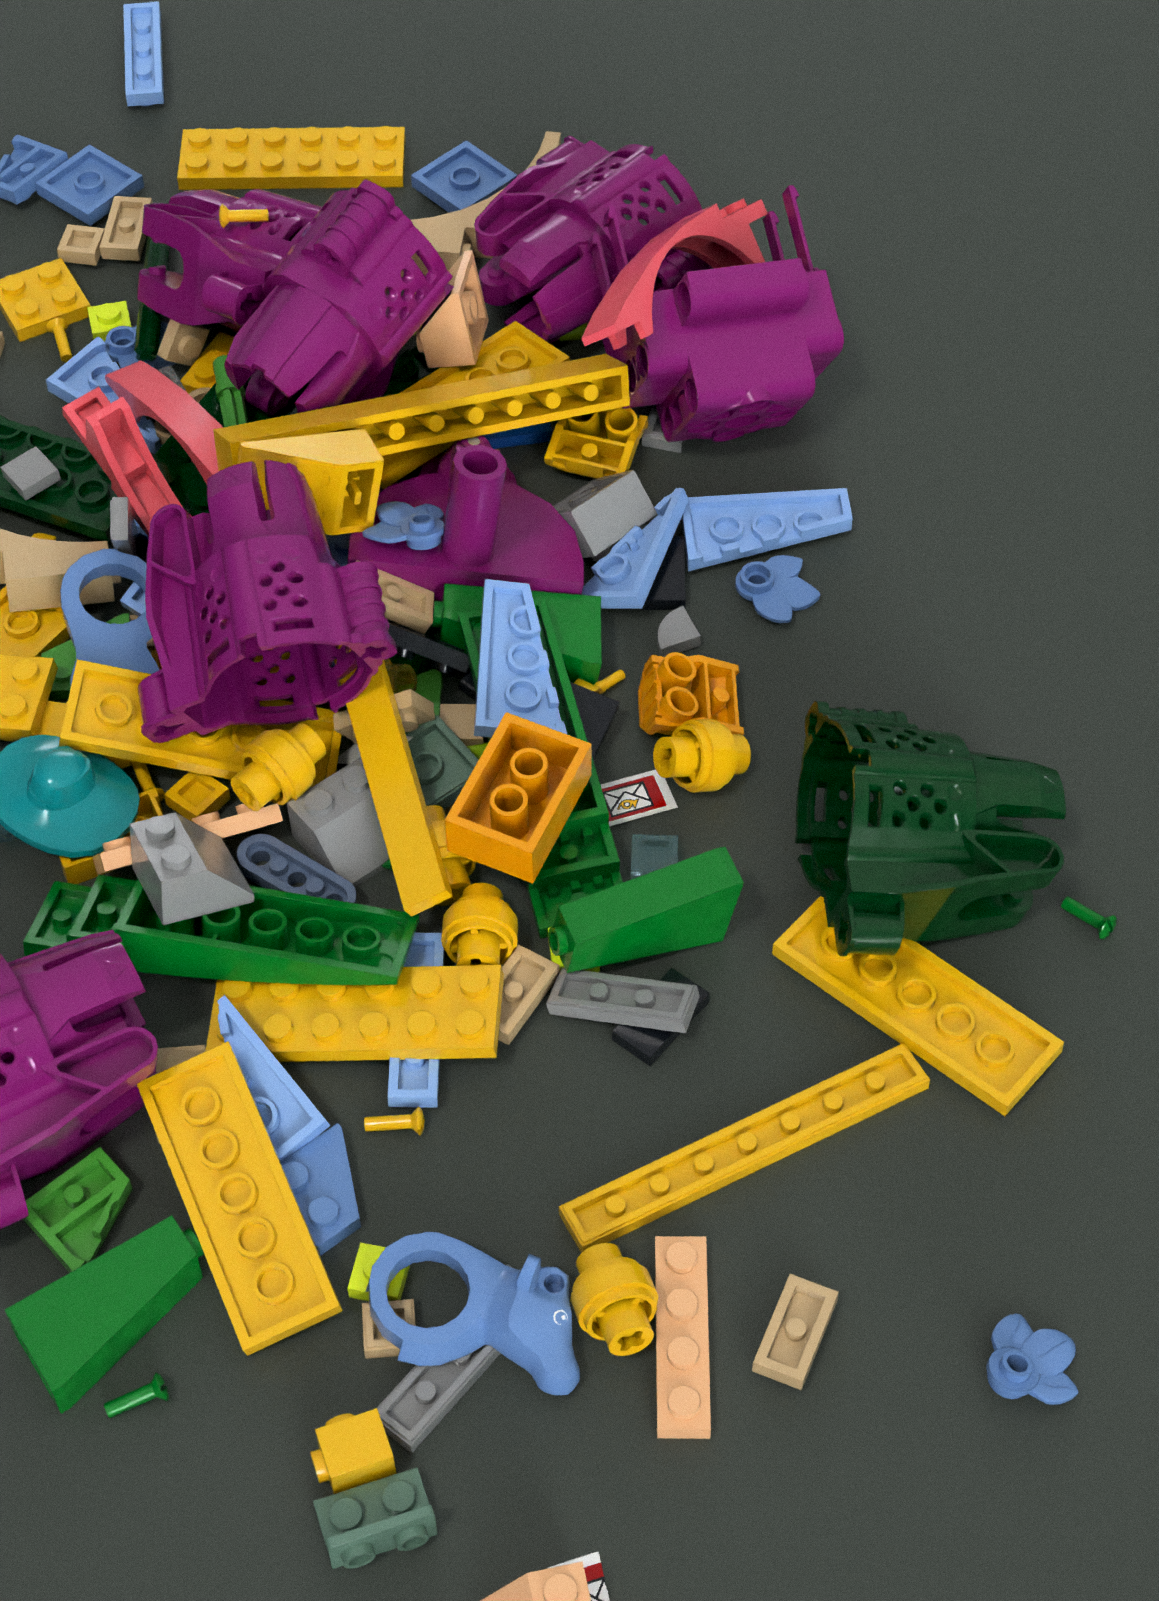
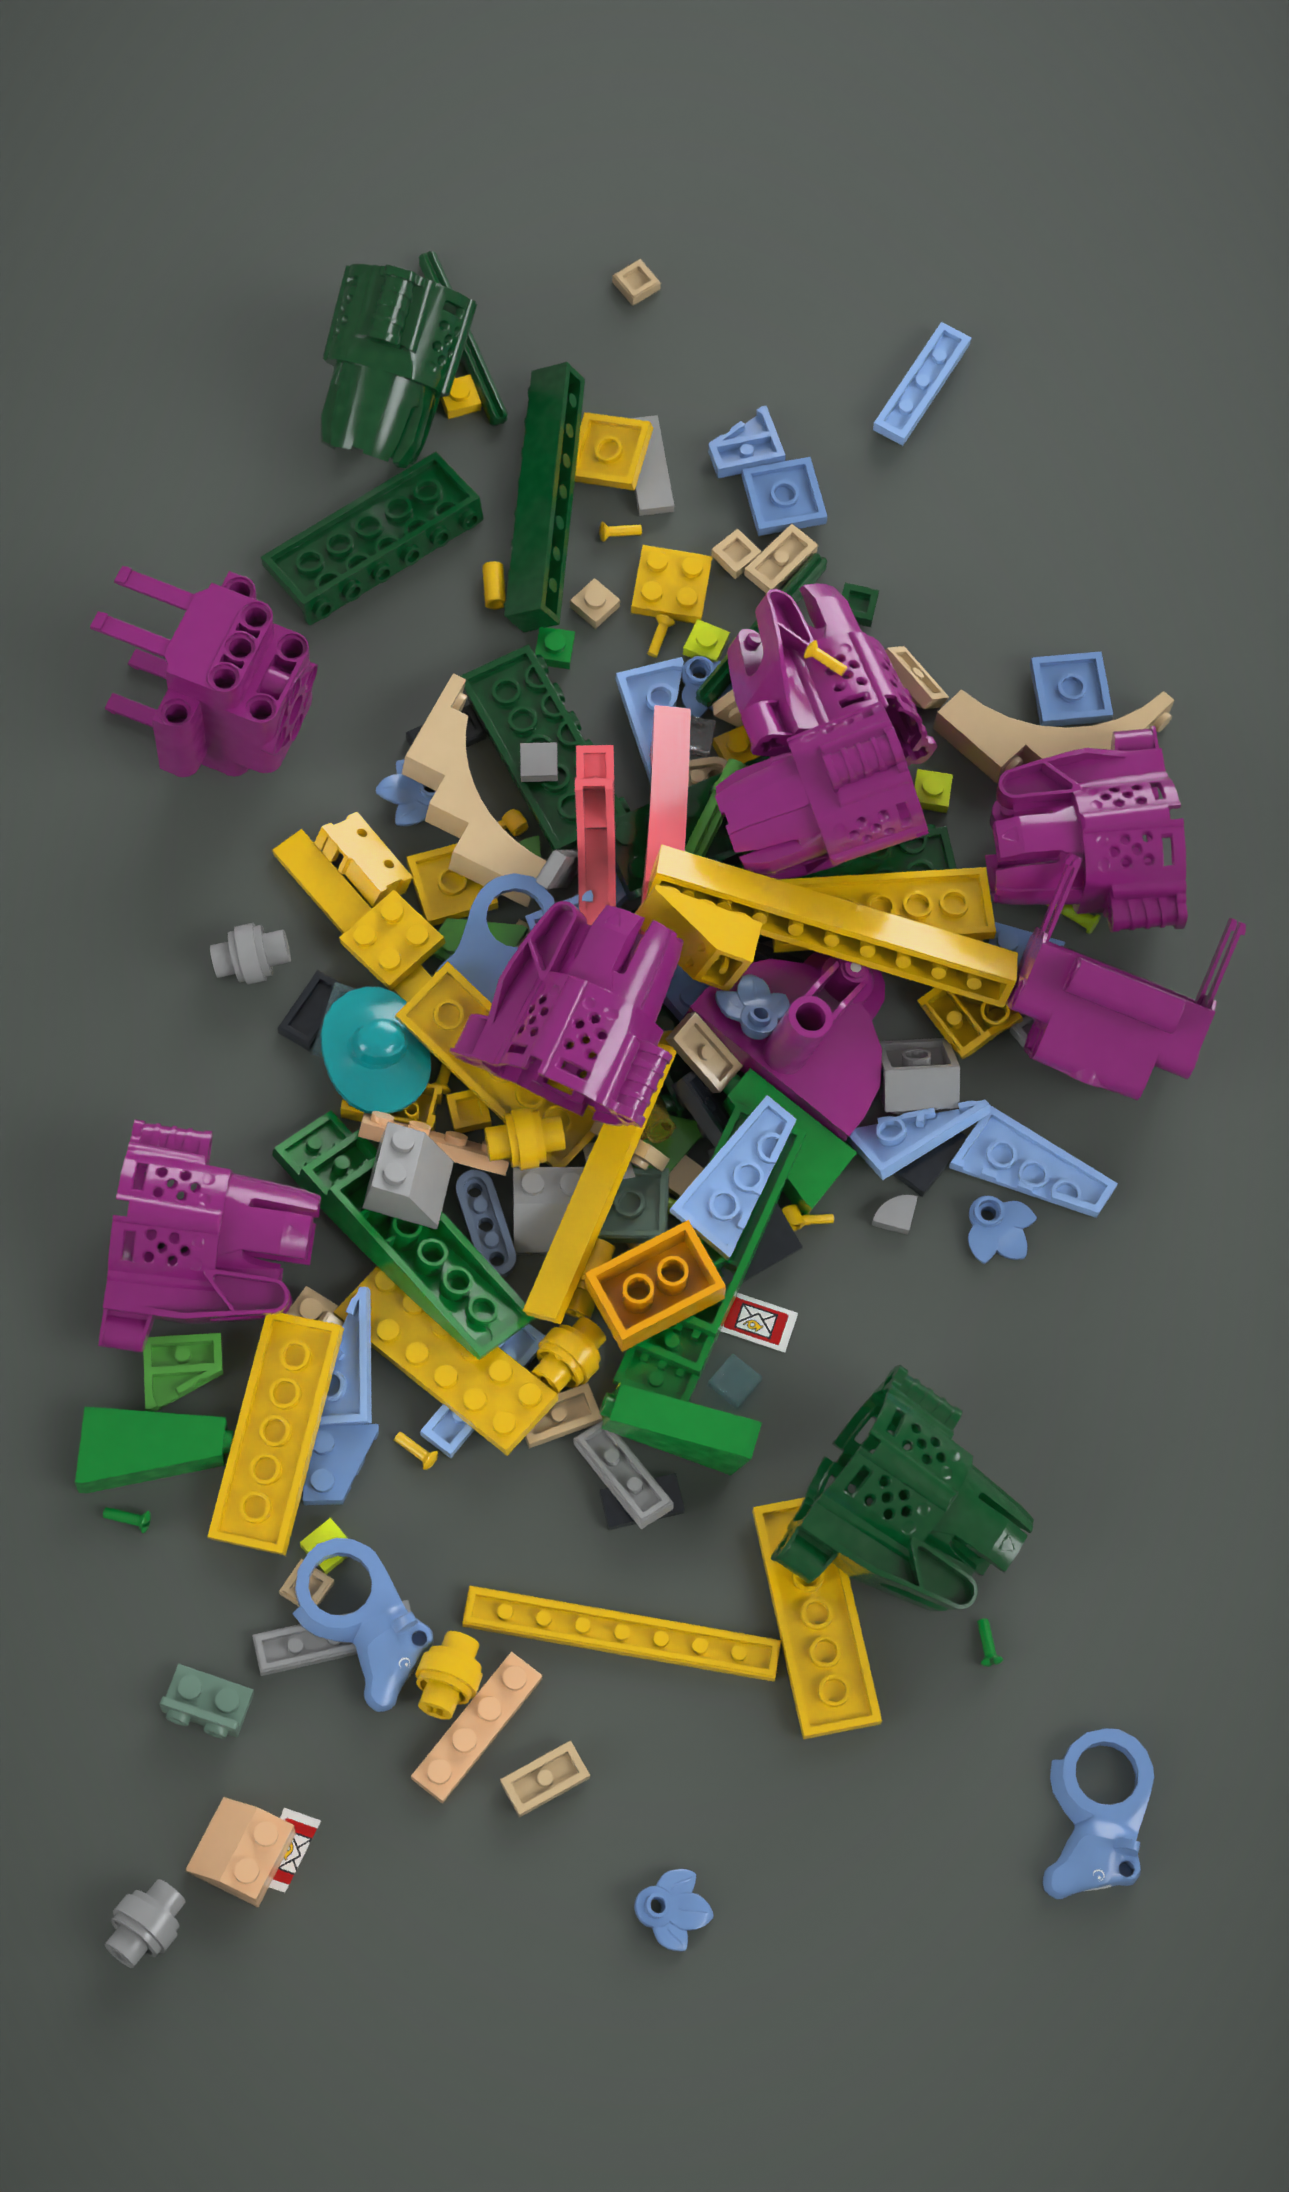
camera: 30 degrees right, 15 degrees up
(291, 158) = (960, 571): yellow plate -> none
(352, 1451) = (222, 1651): yellow brick -> none
(459, 322) = (930, 855): light nougat slope -> none
(687, 689) = (857, 1277): light orange slope -> none
(701, 755) = (823, 1331): yellow piece -> none
(710, 234) = (1173, 916): coral slope -> none

